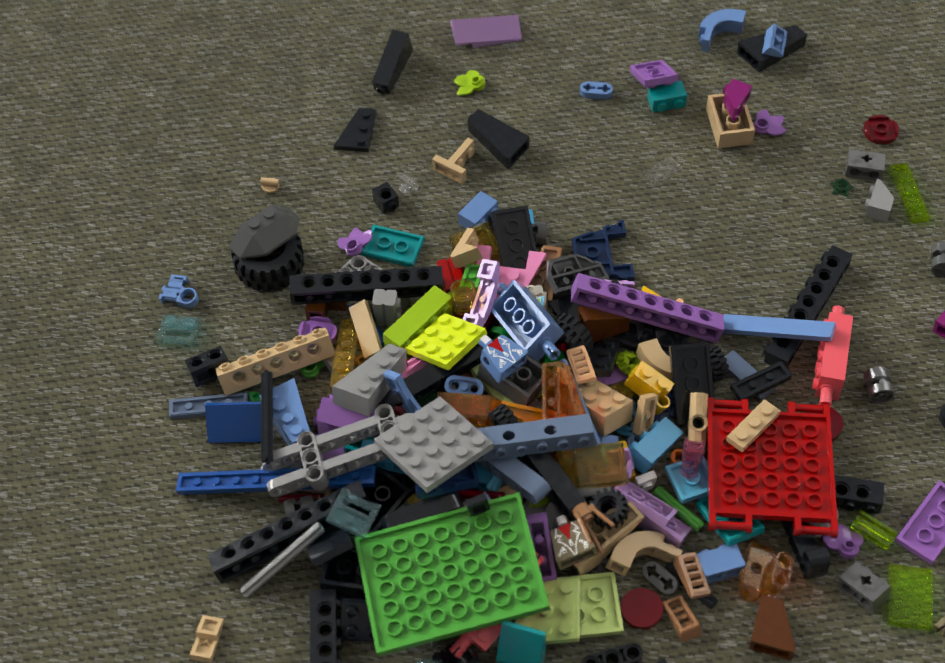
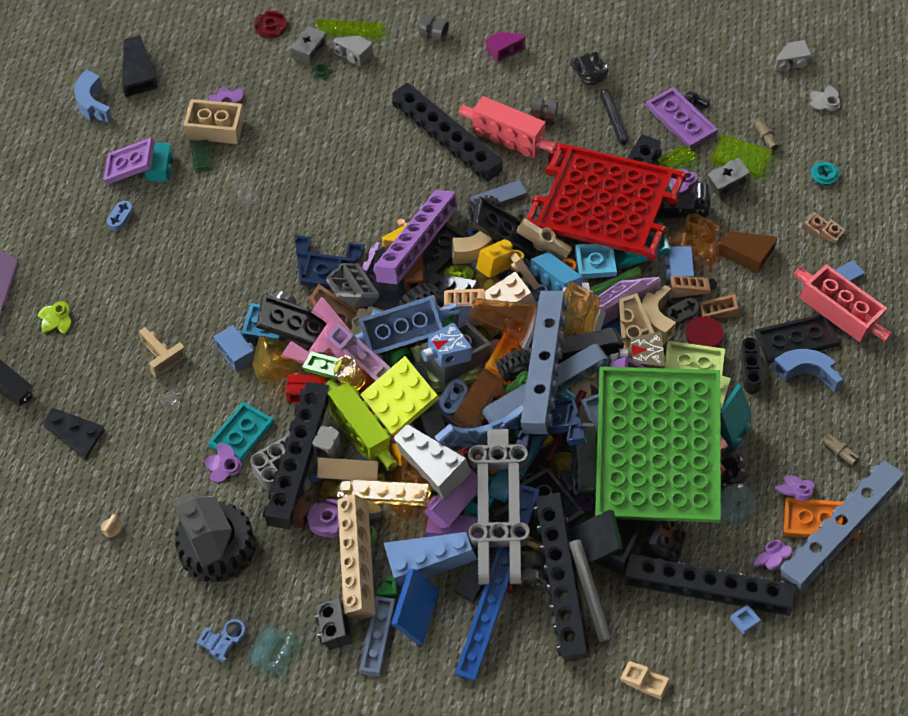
camera: 75 degrees left, 0 degrees up
(267, 417) = (430, 565): black axle -> none
(351, 519) = (580, 510): clear light blue plate -> none
(385, 198) = (175, 418): black brick -> none
(433, 444) = (536, 413): light grey plate -> none
(466, 249) = (293, 360): tan slope -> none
(477, 505) = (606, 398): black tile -> none
(498, 138) = (145, 309): black slope -> none
(584, 515) = (628, 330): medium nougat plant -> none
(610, 496) = (626, 304): black tyre -> none
(691, 126) = (201, 155): none -> clear green tile
(692, 455) = (581, 249): clear pink piece -> none
(736, 97) = (203, 103): magenta slope -> none
(753, 425) = (566, 197): tan plate -> none
(761, 381) = (514, 185): black plate -> none
(774, 41) = (138, 59): medium blue slope -> none
(779, 327) = (470, 151): medium blue tile -> none
(906, 455) = (614, 116): none -> black axle

